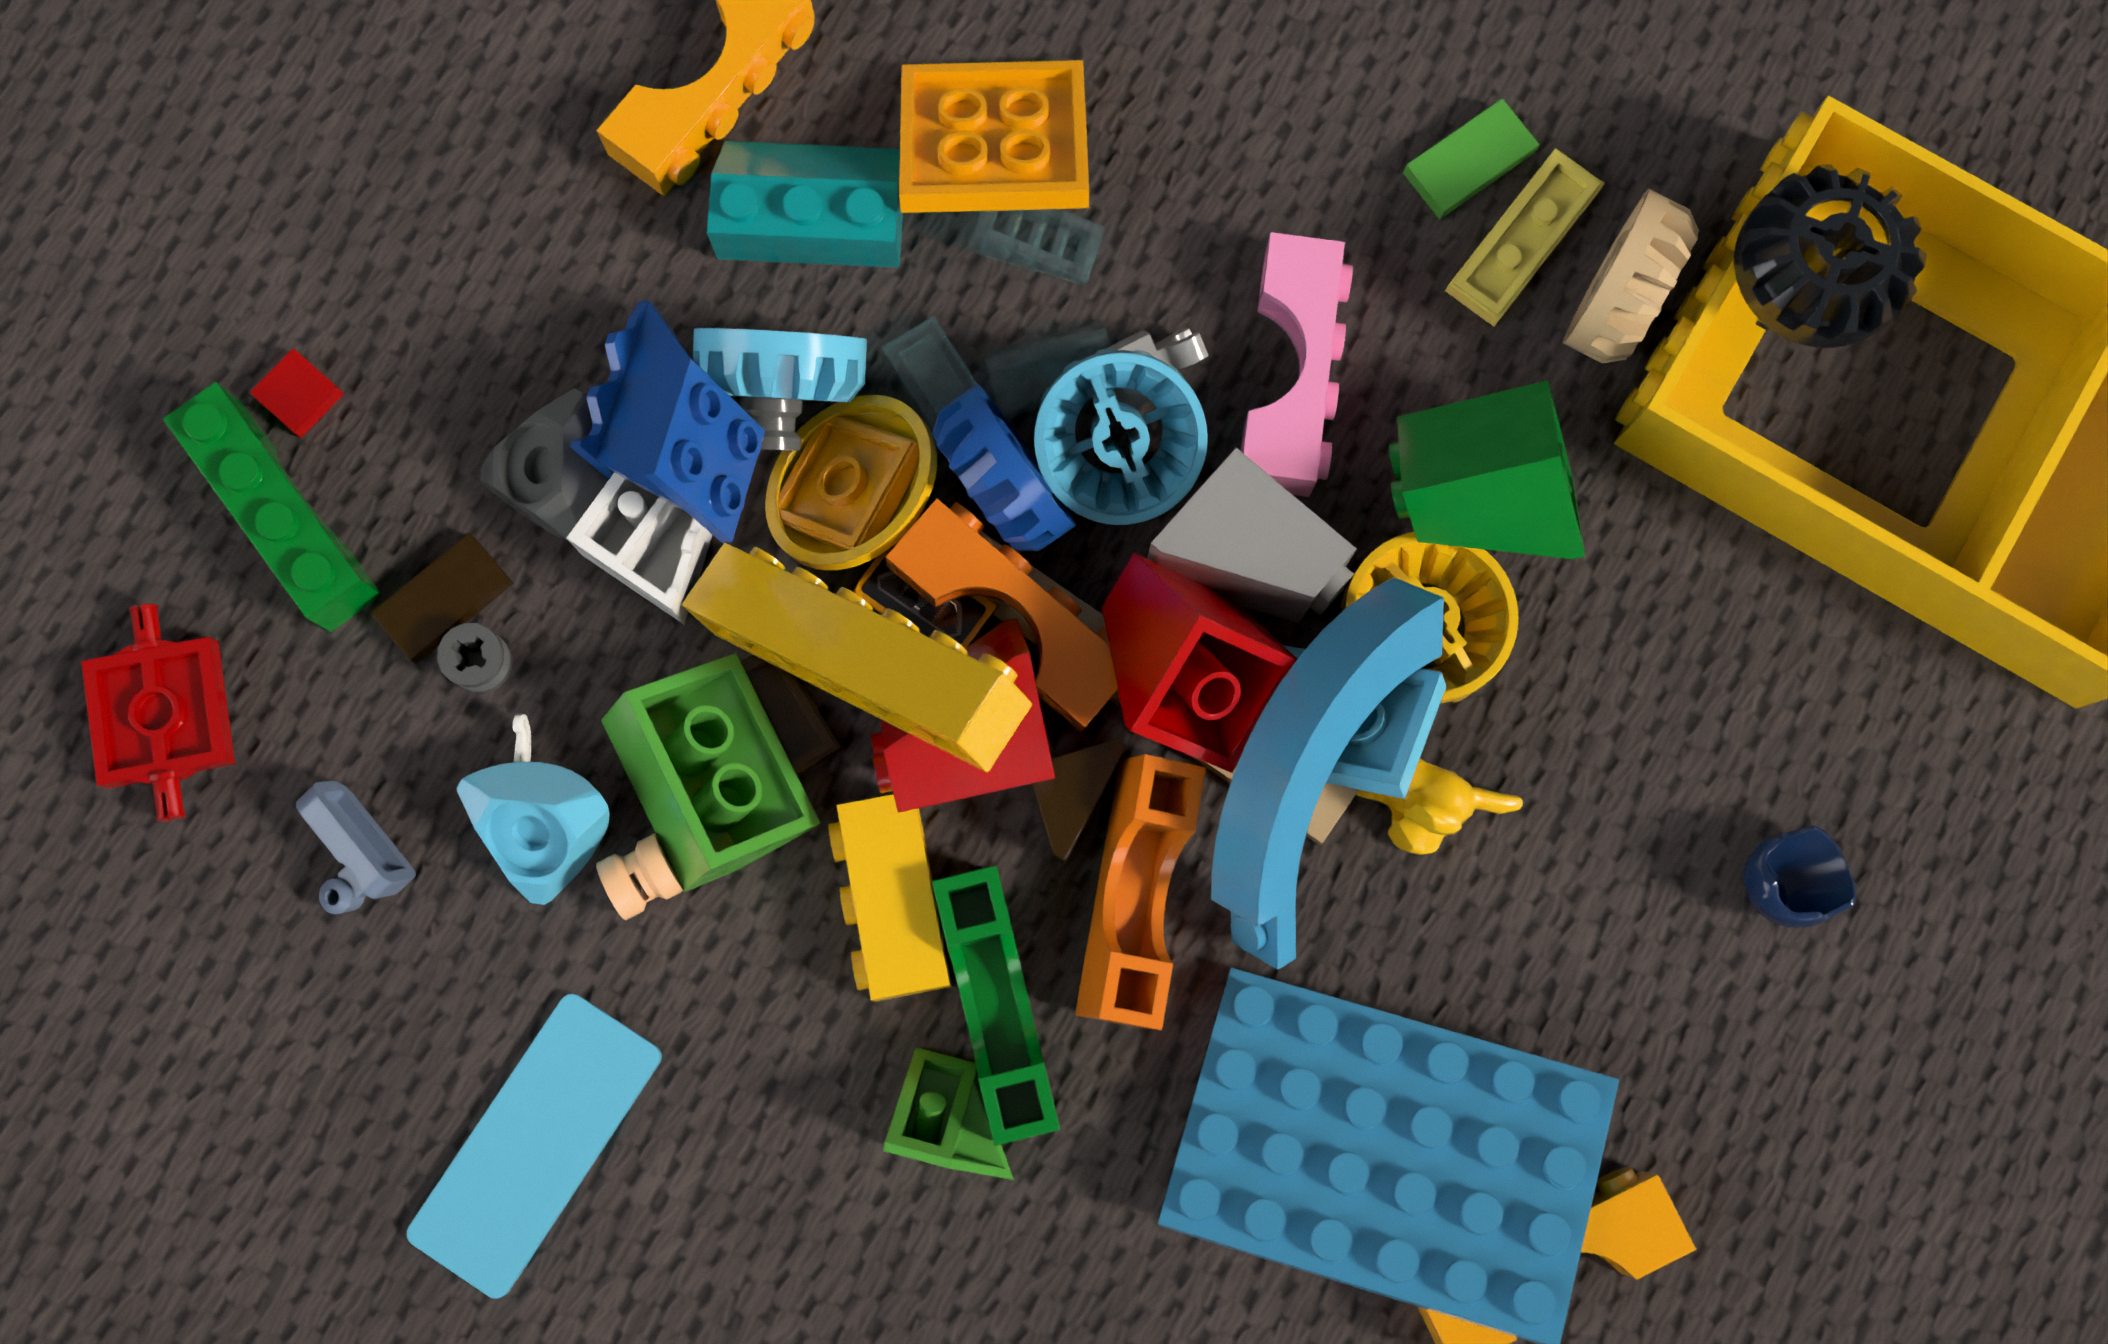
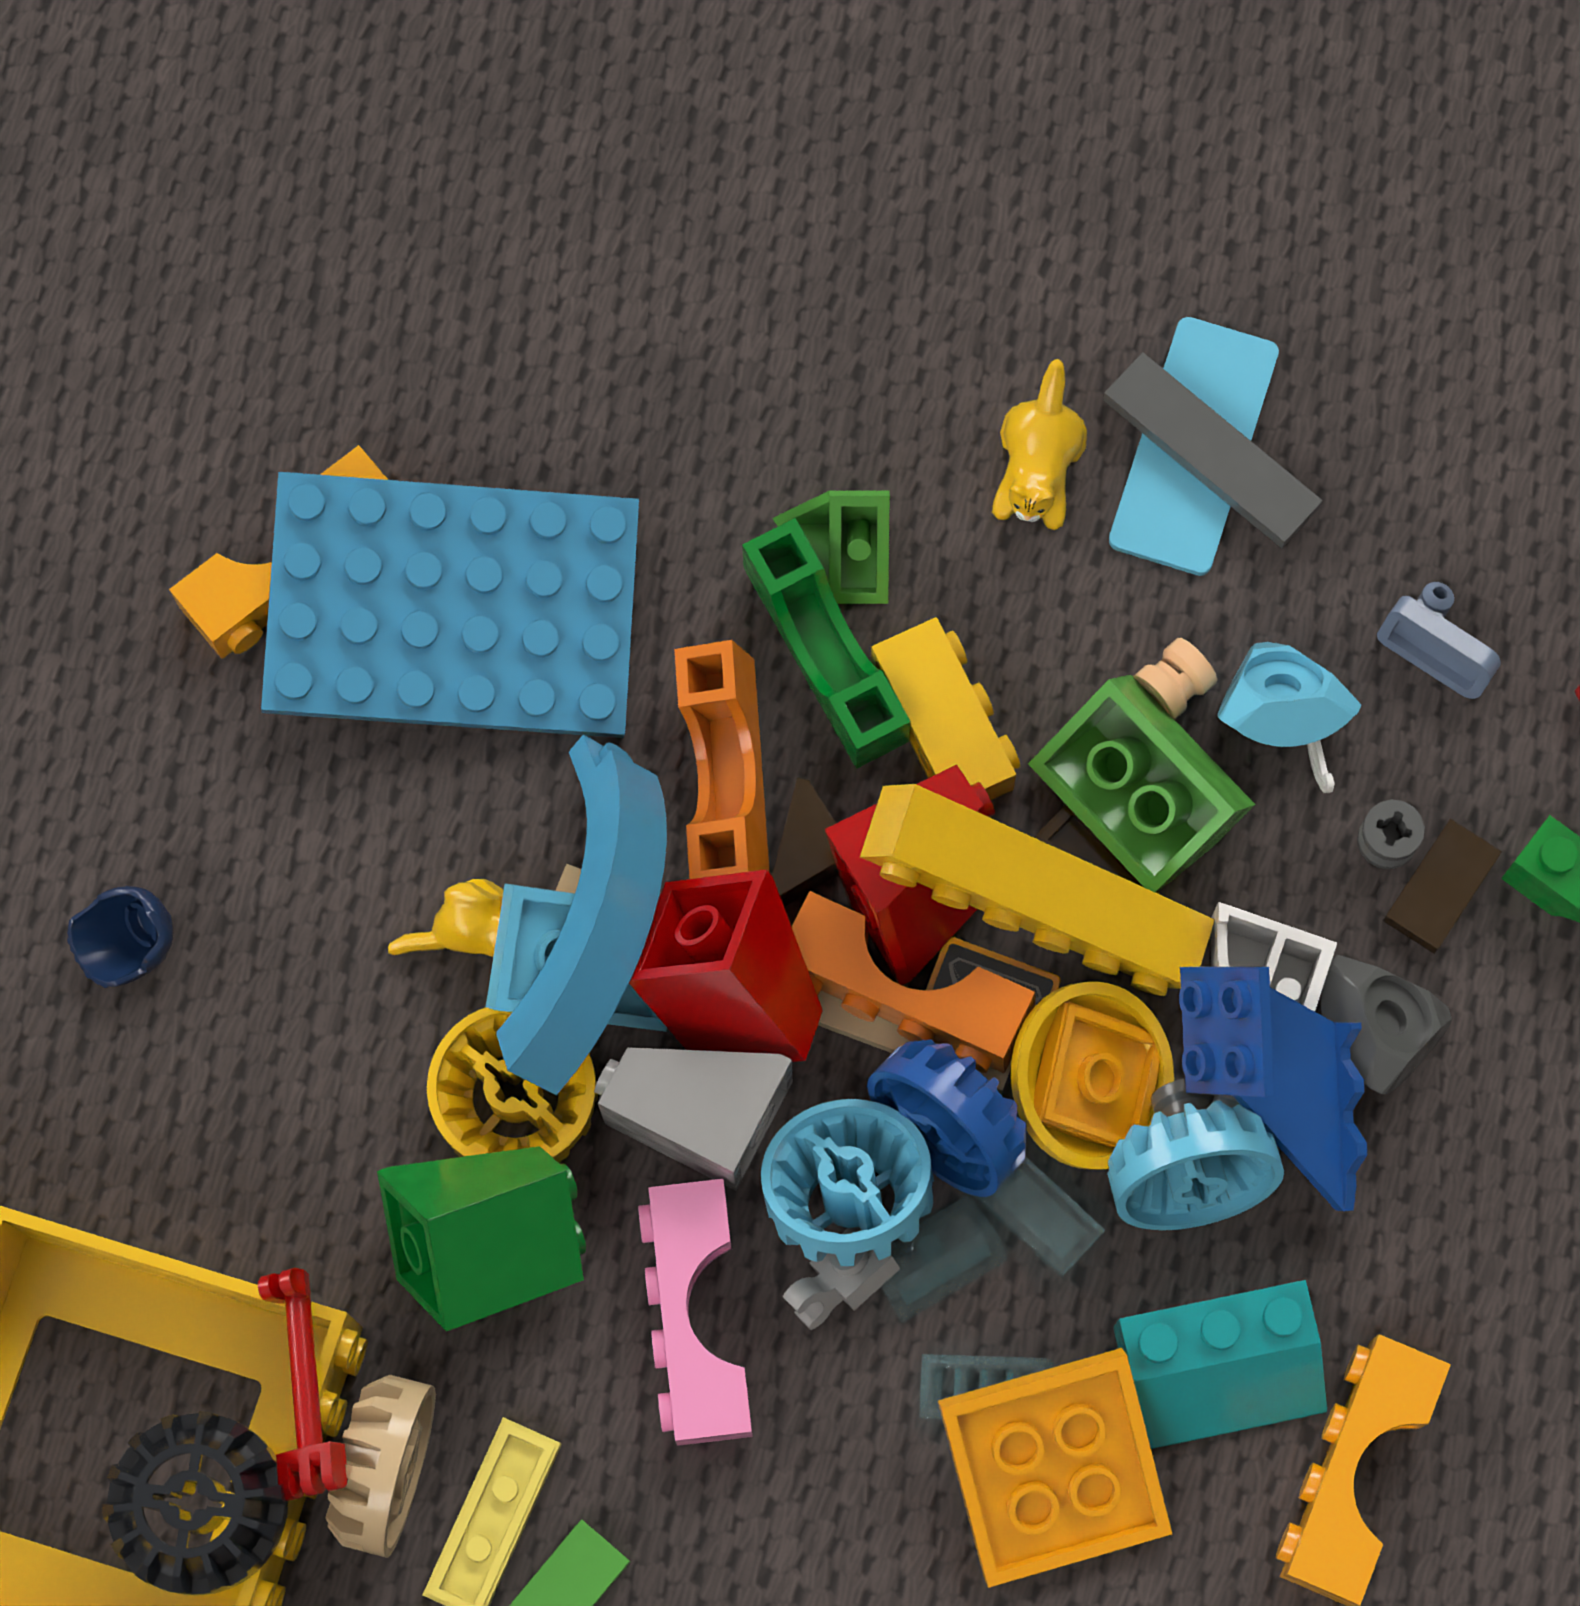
camera: 170 degrees right, 5 degrees down
(518, 1127) = (1212, 450): none -> dark grey tile
(701, 1179) = (1041, 445): none -> yellow animal
(1715, 264) = (314, 1463): none -> red hinge

